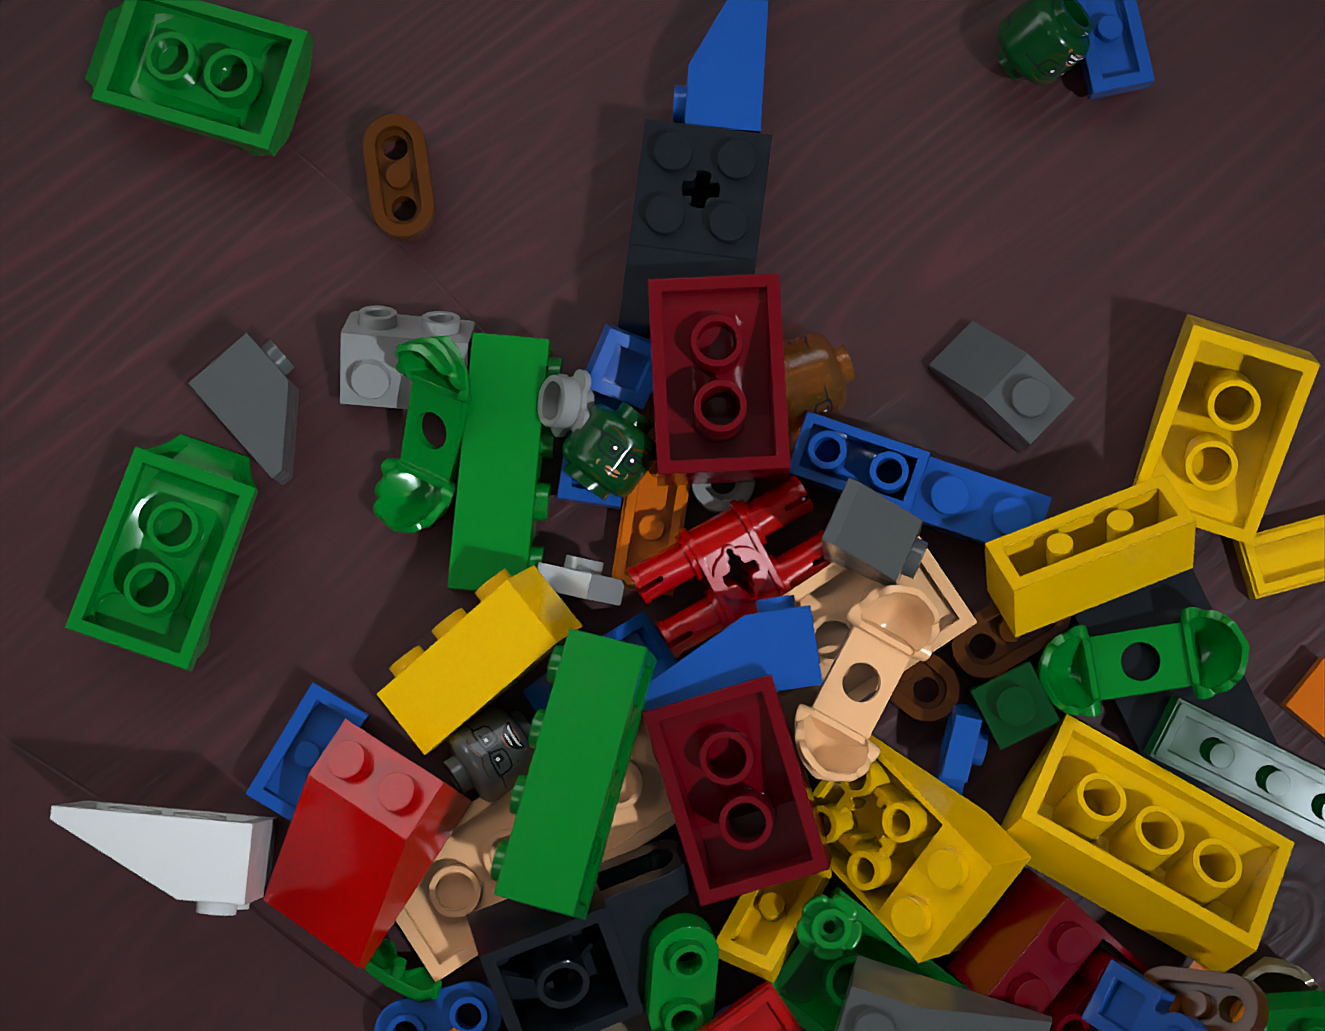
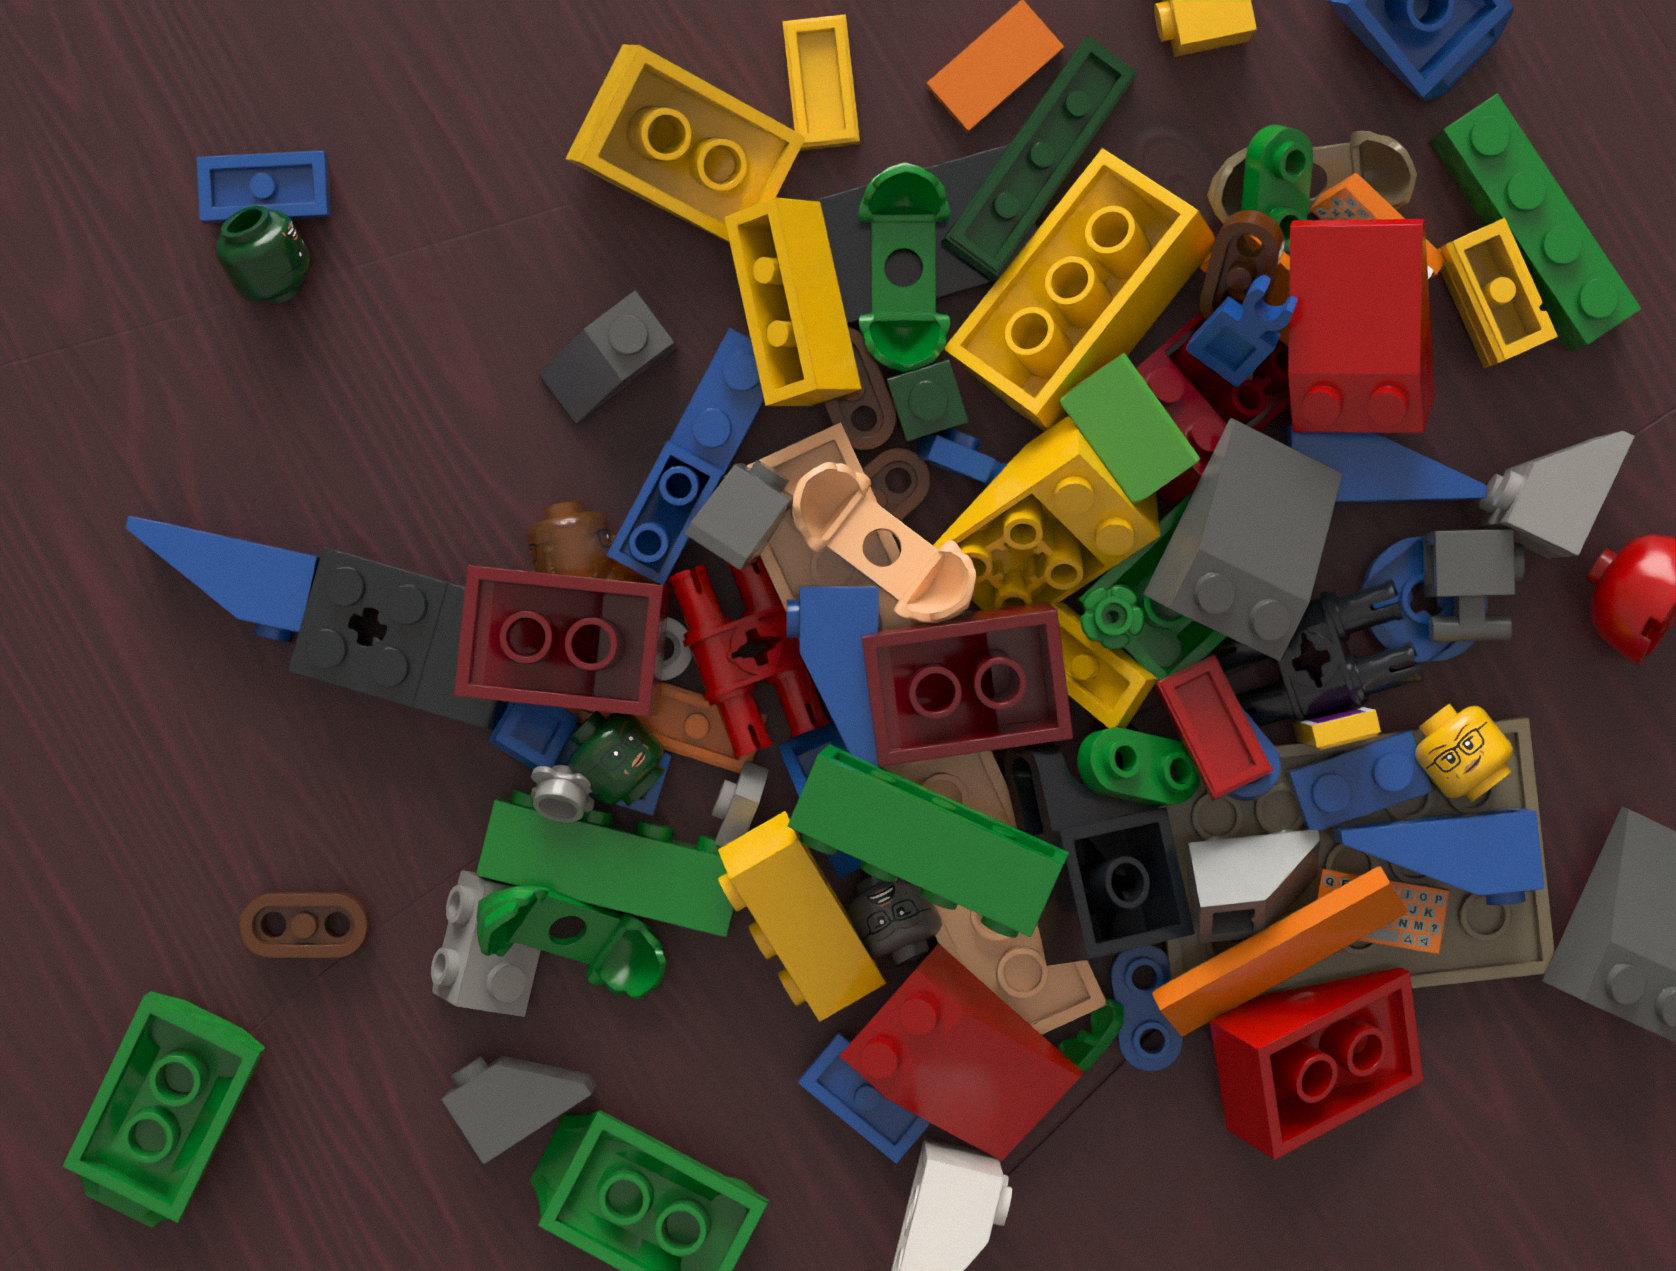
camera: 85 degrees left, 5 degrees up
(1023, 914) = (1129, 429): none -> bright green slope

